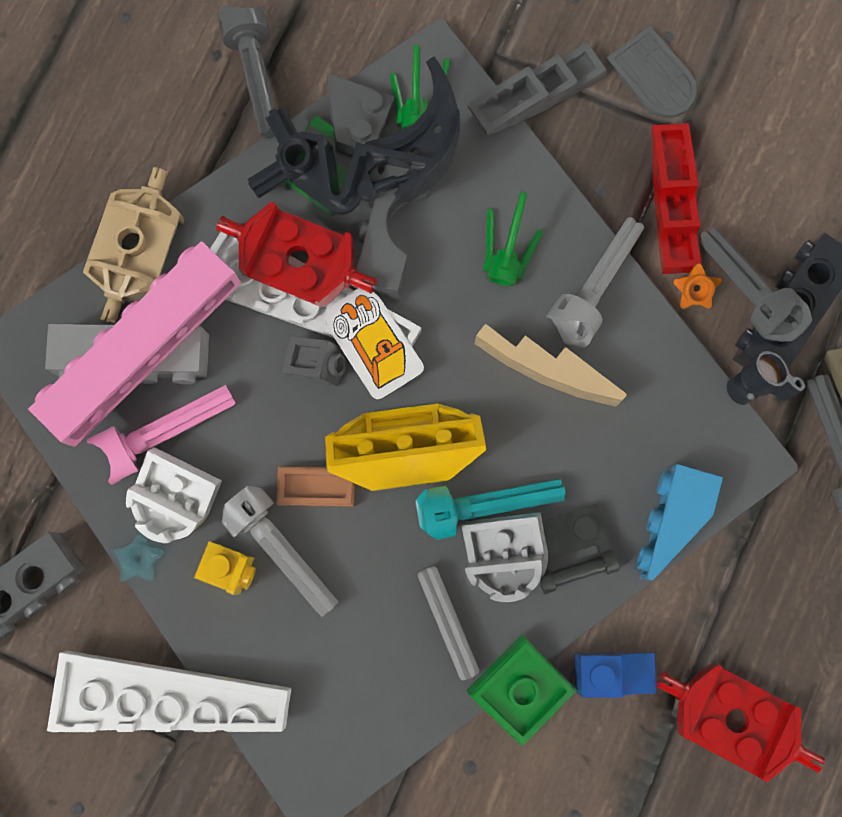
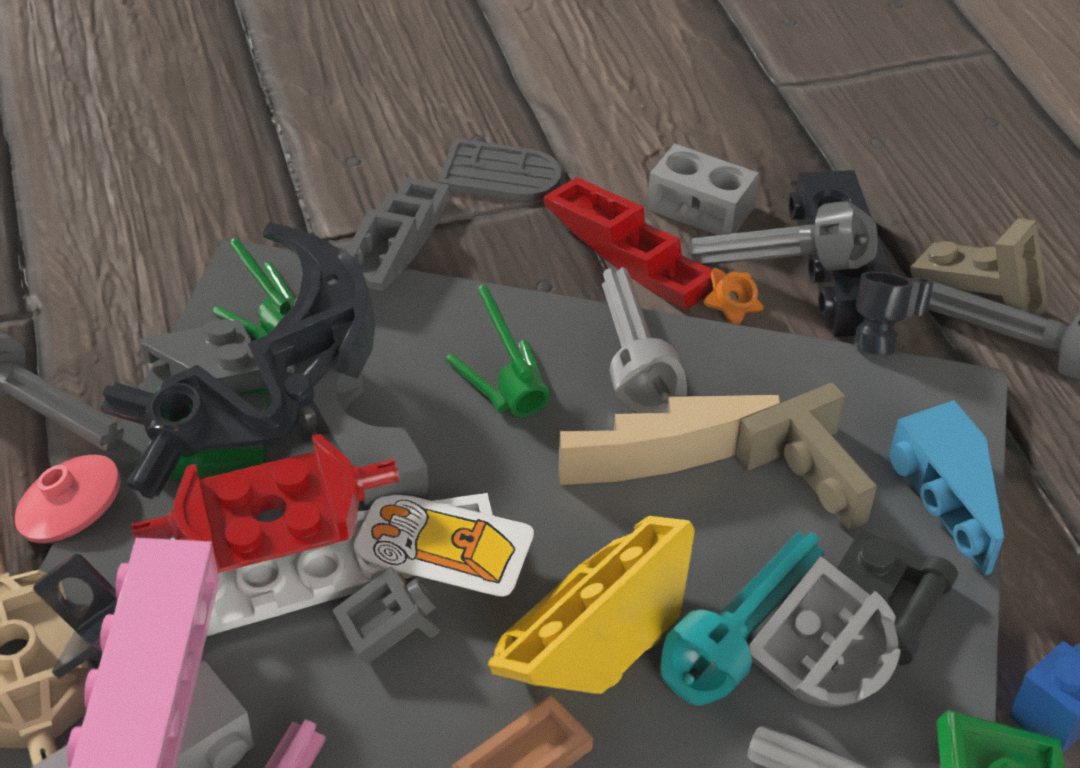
camera: 45 degrees left, 35 degrees down
(167, 261) = (82, 618): none -> black bracket
(226, 155) = (67, 498): none -> coral dish
(617, 436) = (802, 434): none -> dark tan bracket
(747, 194) = (702, 191): none -> light grey brick

